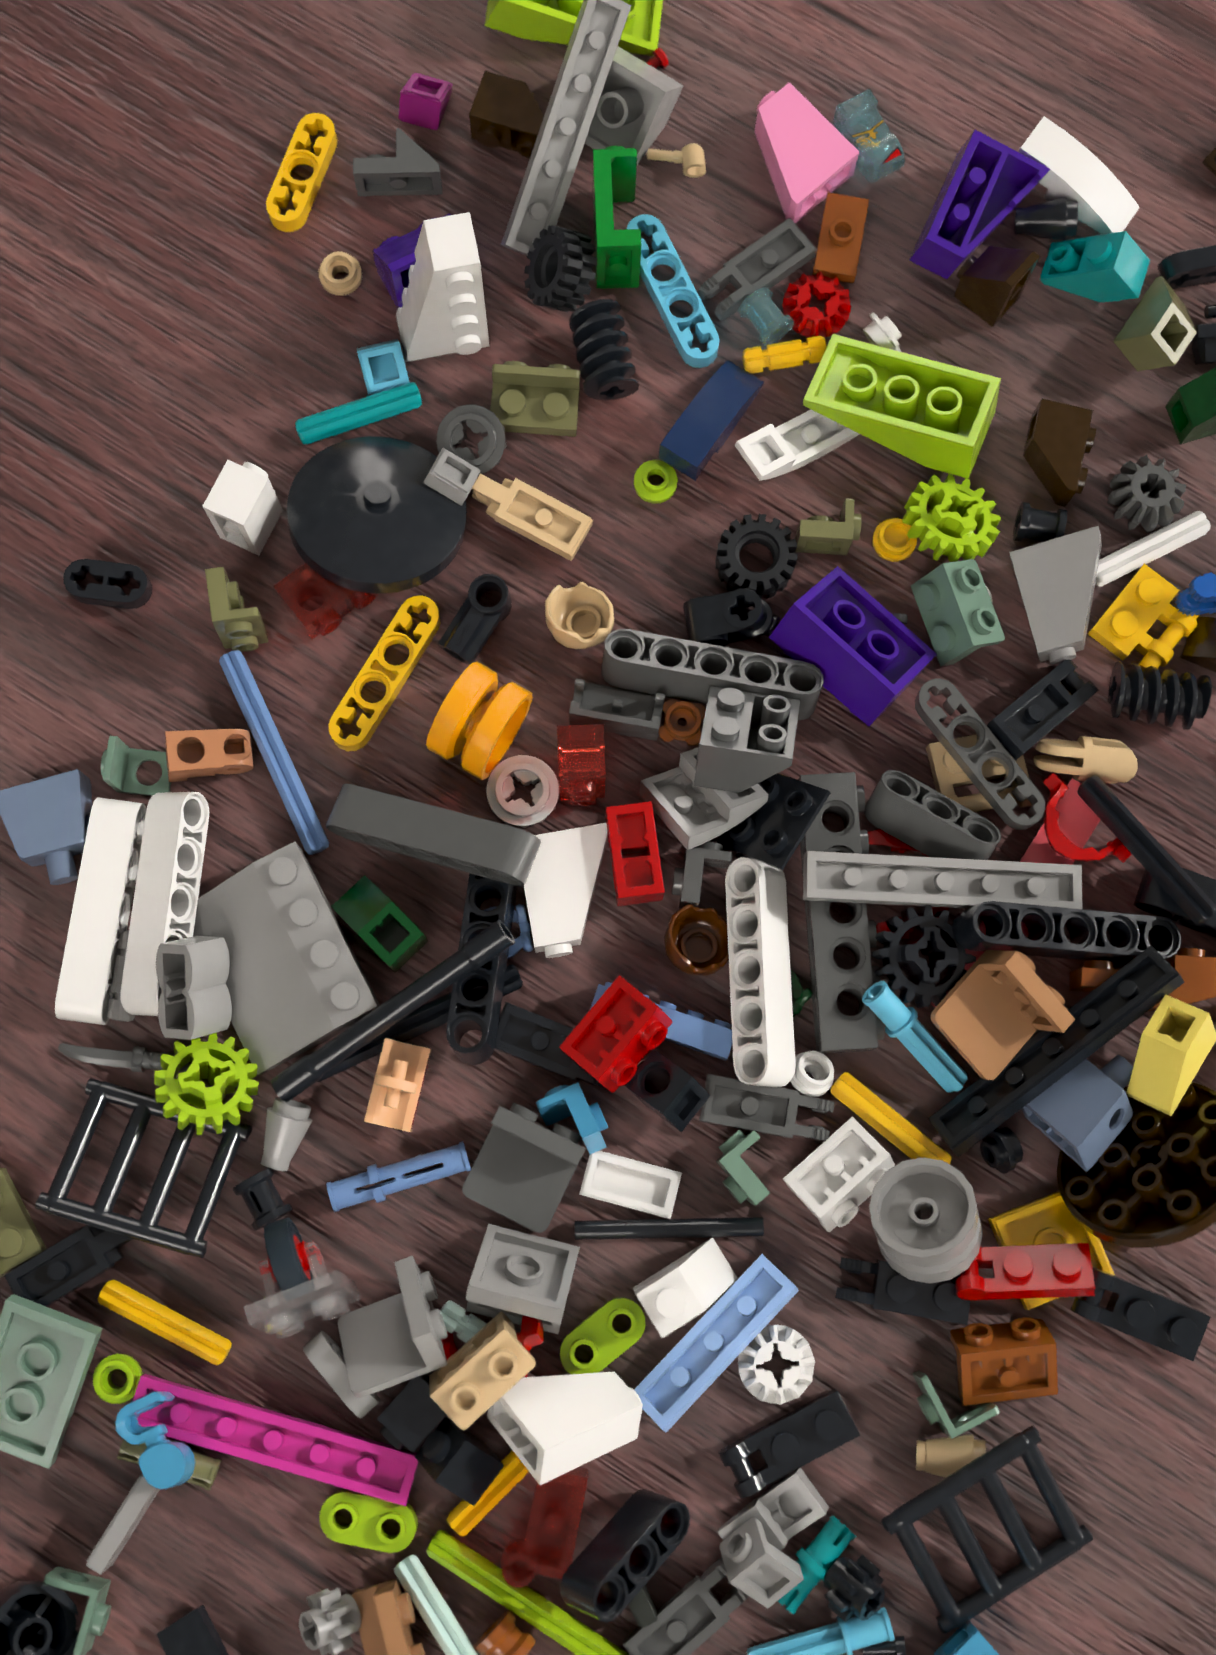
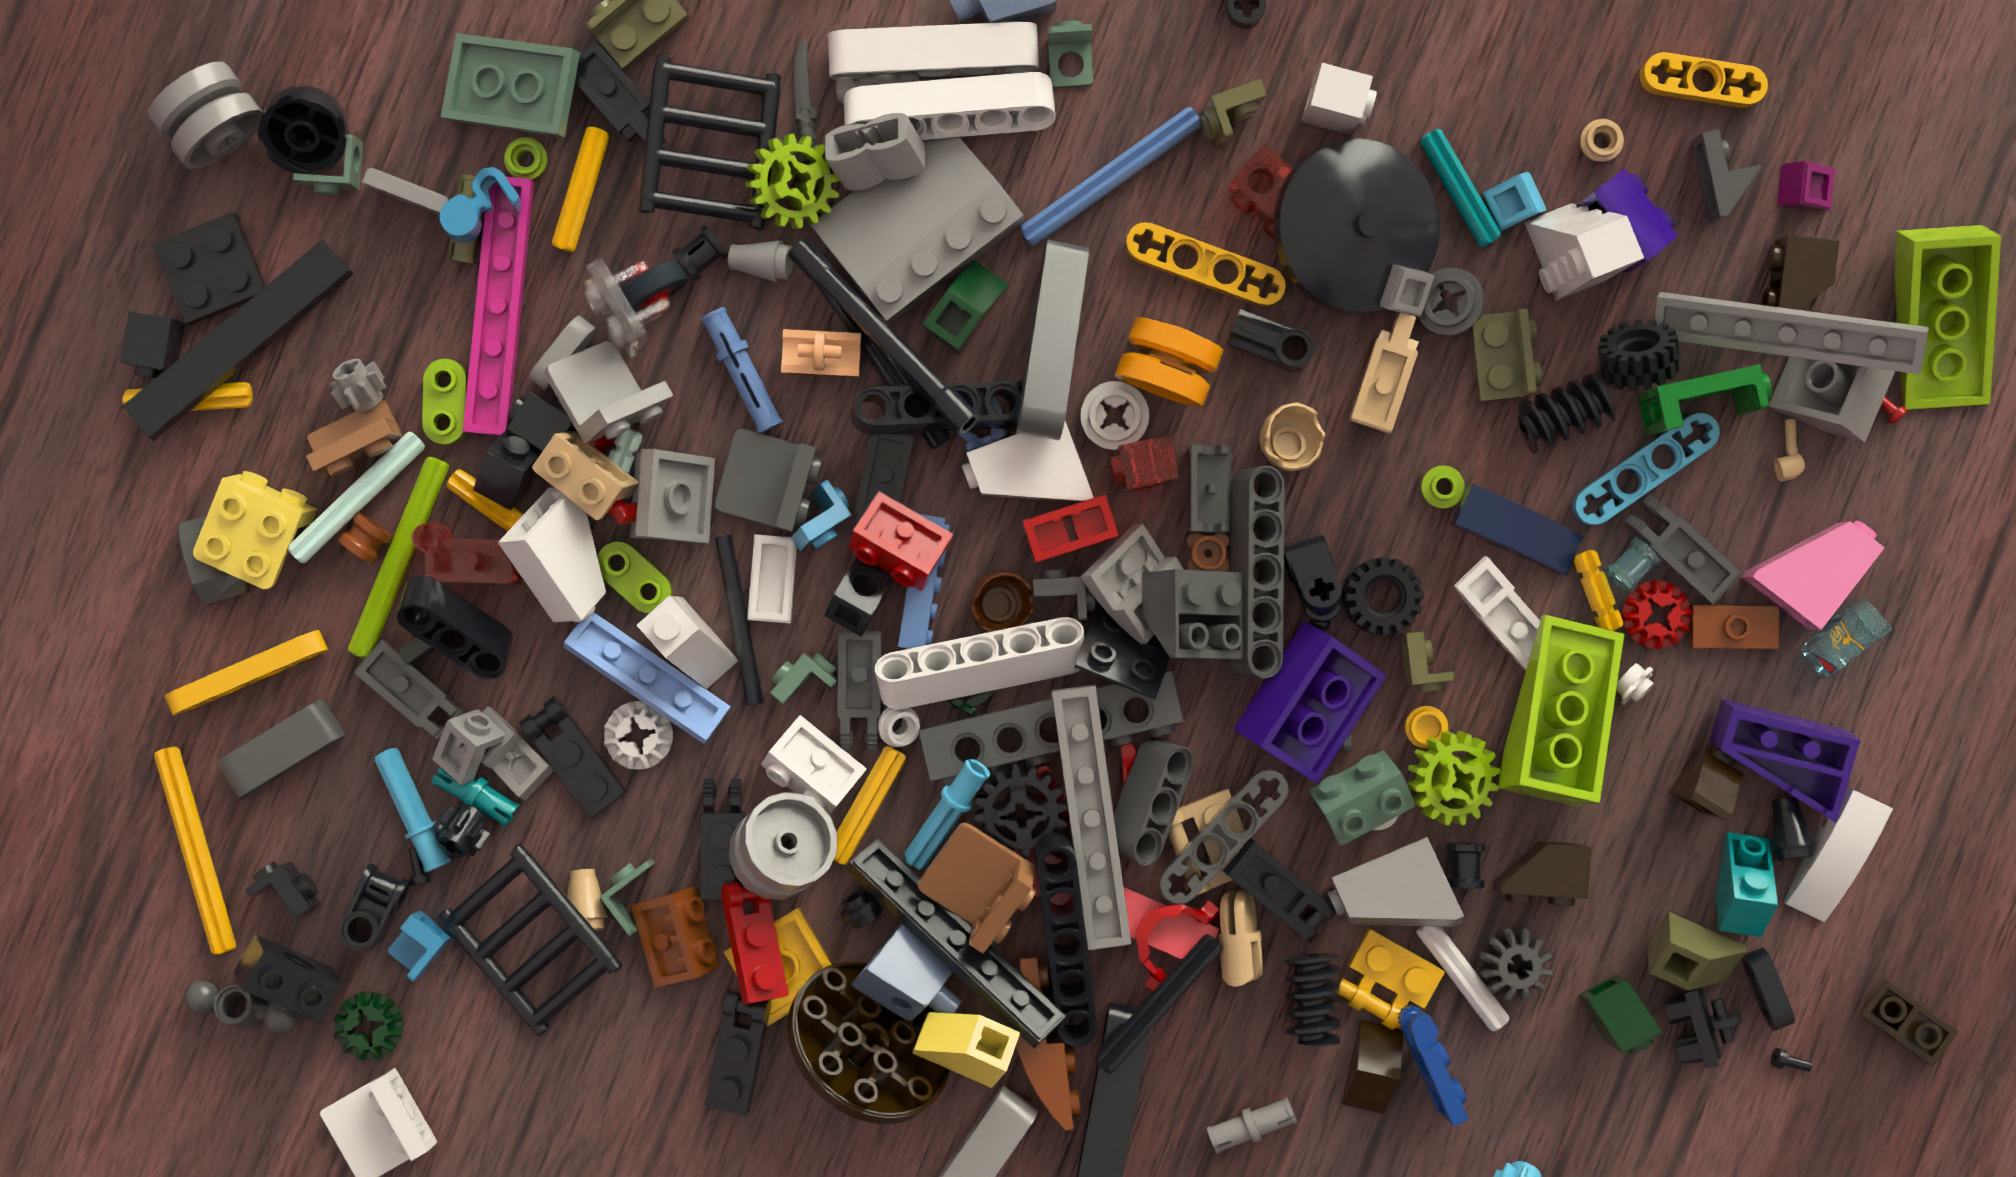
camera: 85 degrees right, 10 degrees up
(207, 753) = (1096, 116): nougat leg -> none

